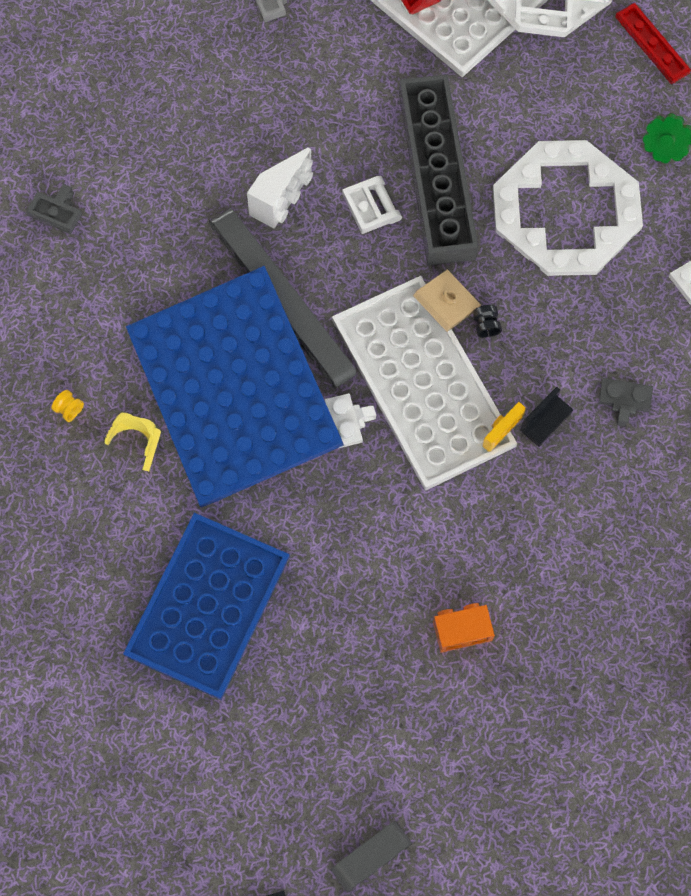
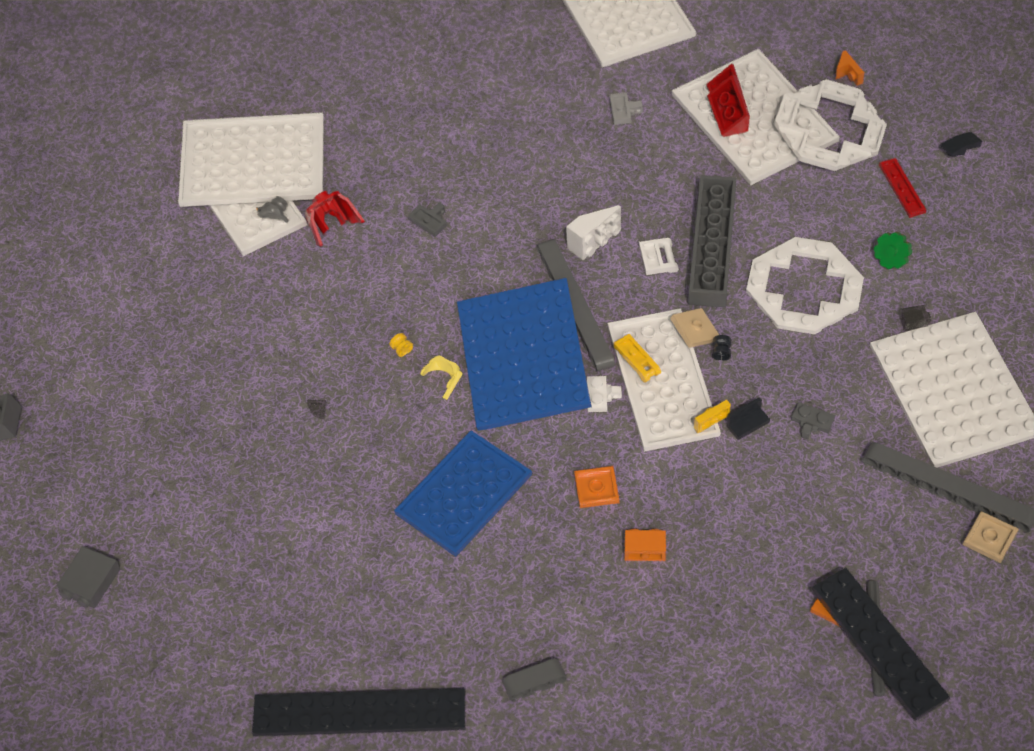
camera: 20 degrees right, 15 degrees down
(378, 557) = (596, 487): none -> orange plate
(385, 361) = (637, 357): none -> yellow plate

